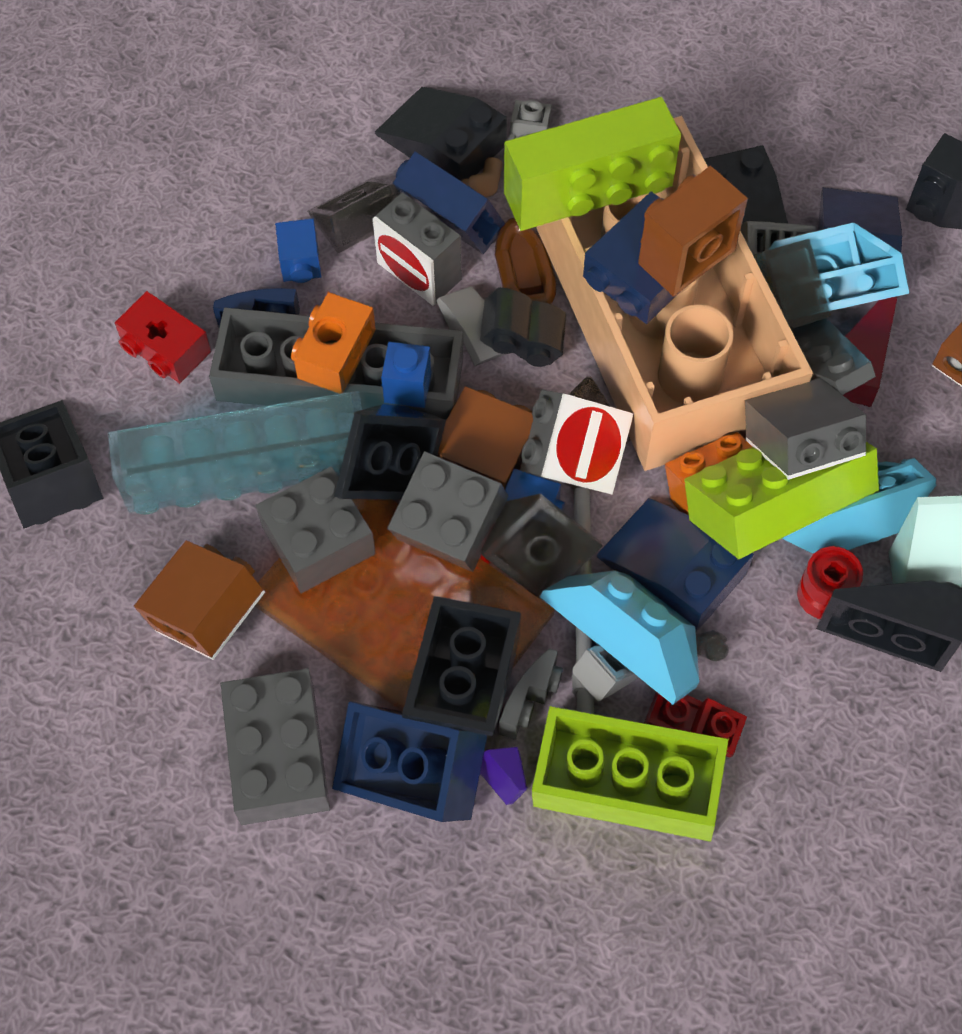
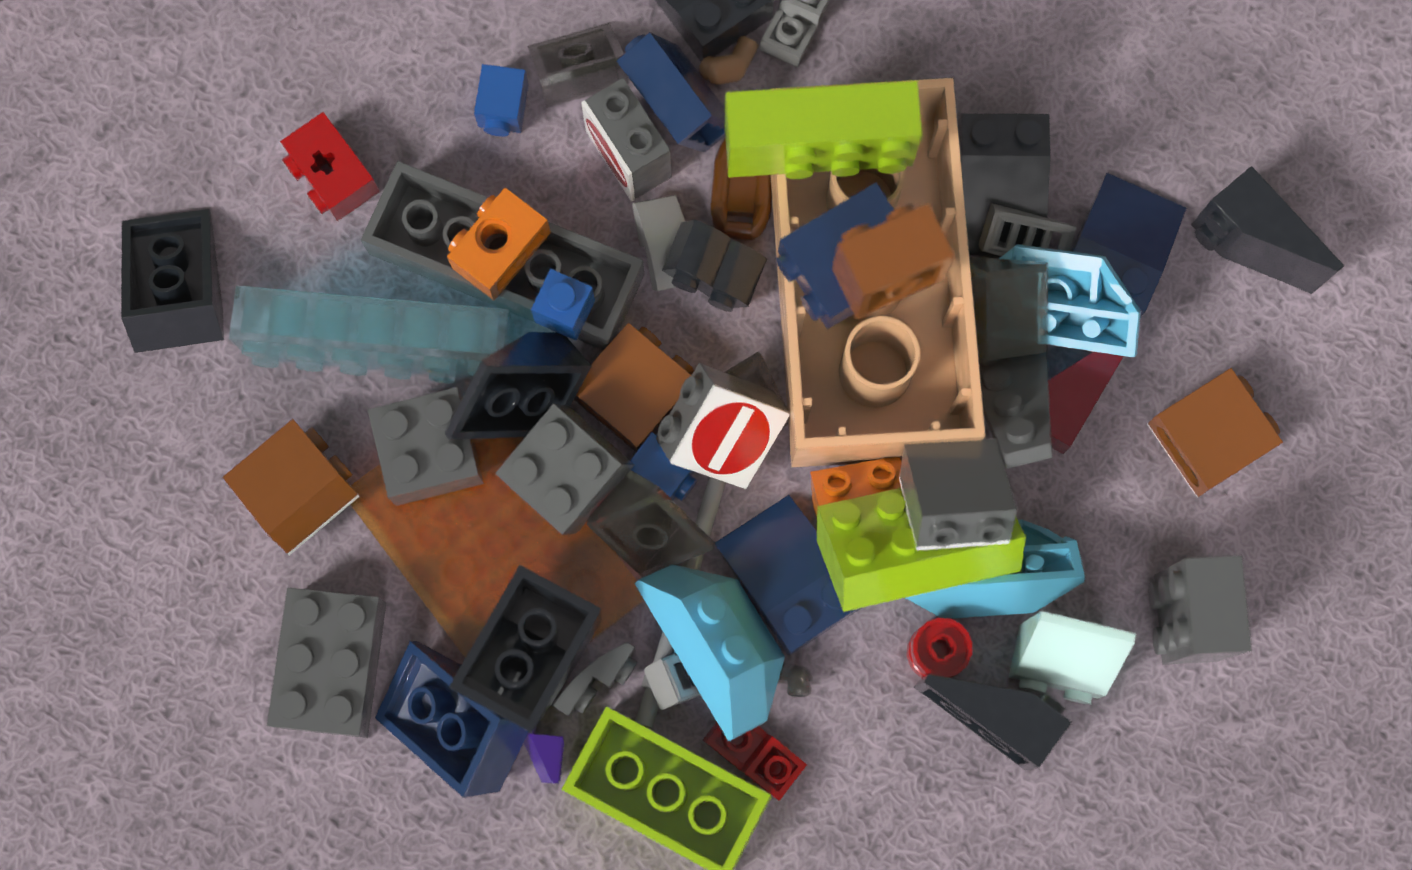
camera: 15 degrees right, 15 degrees up
(267, 300) = (430, 156): dark blue slope -> none

